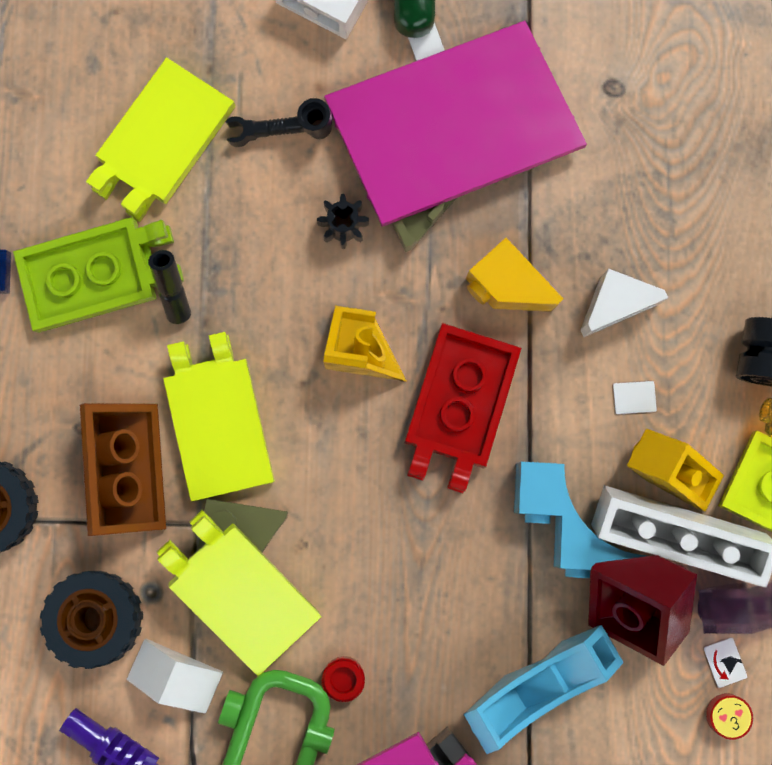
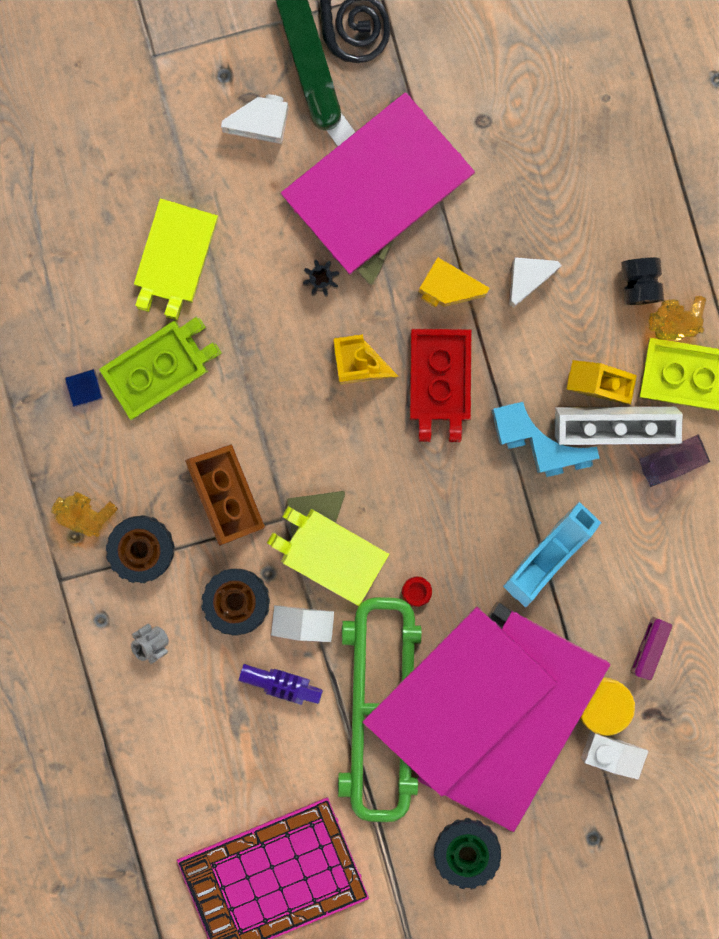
camera: 10 degrees left, 5 degrees up
(169, 286) = (218, 362): black piece -> none
(216, 421) = (277, 444): neon yellow tile -> none
(307, 114) = (259, 221): black brick -> none
(634, 397) = (560, 339): white sticker -> none
(643, 604) = (602, 479): dark red slope -> none
(725, 662) = (673, 502): white sticker -> none
(729, 716) = (684, 537): light yellow tile -> none

